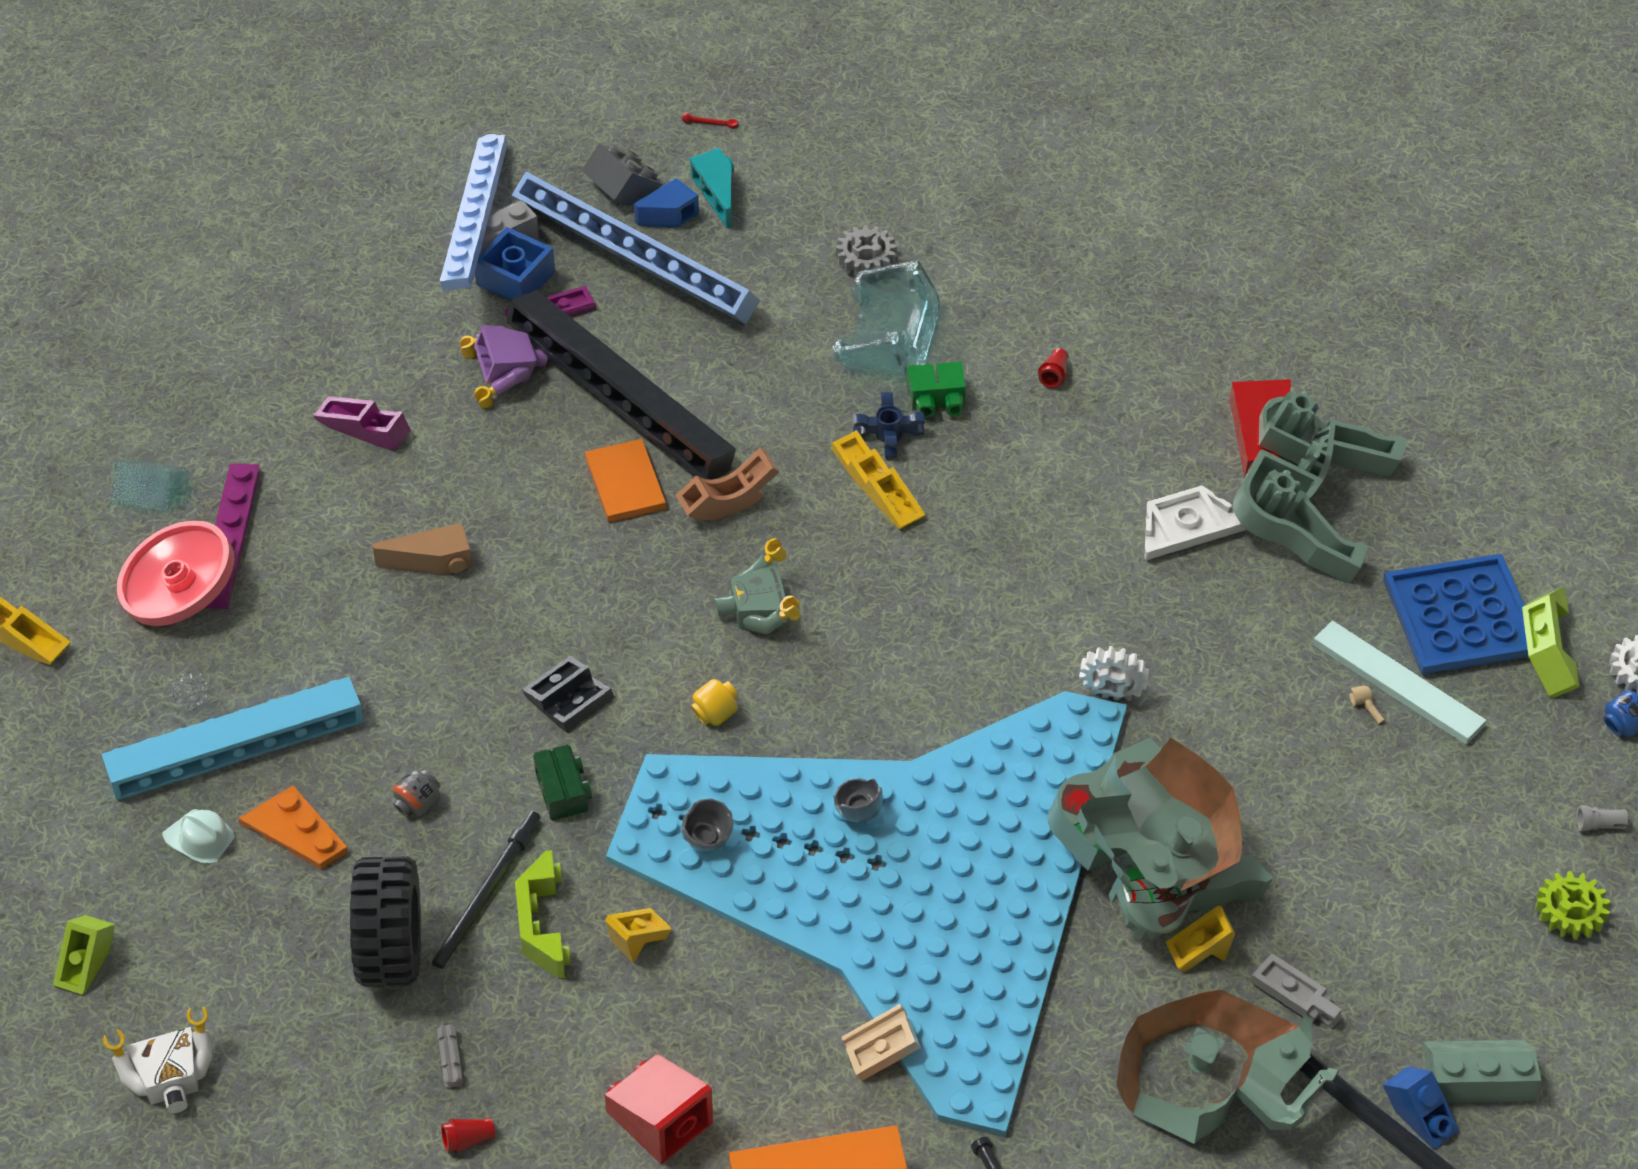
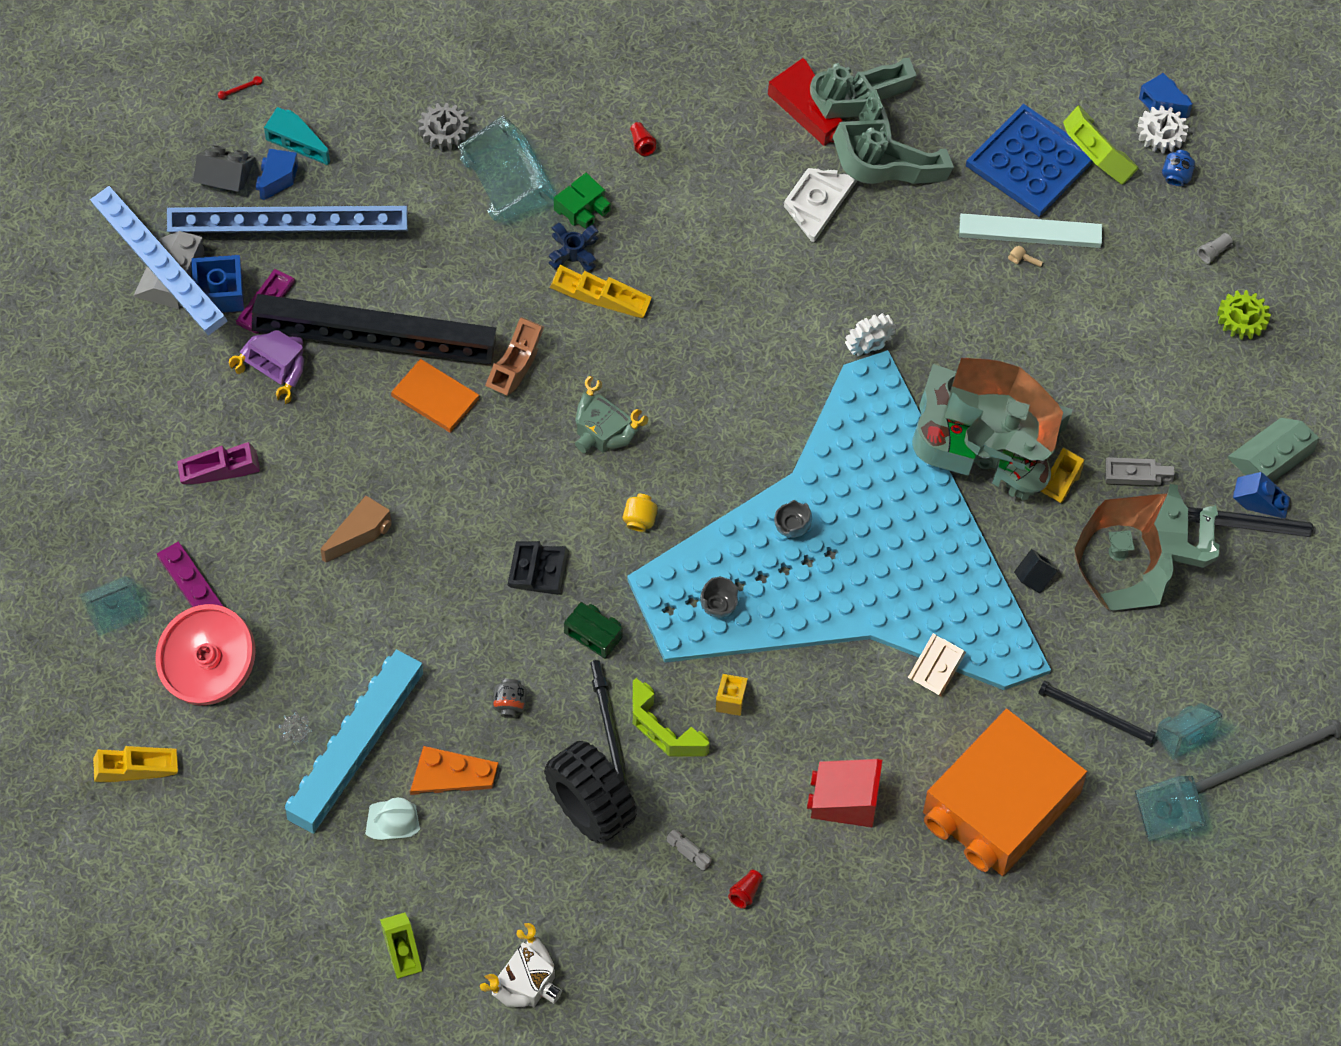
camera: 40 degrees left, 10 degrees up
(1083, 1019) = (1035, 571): none -> black panel

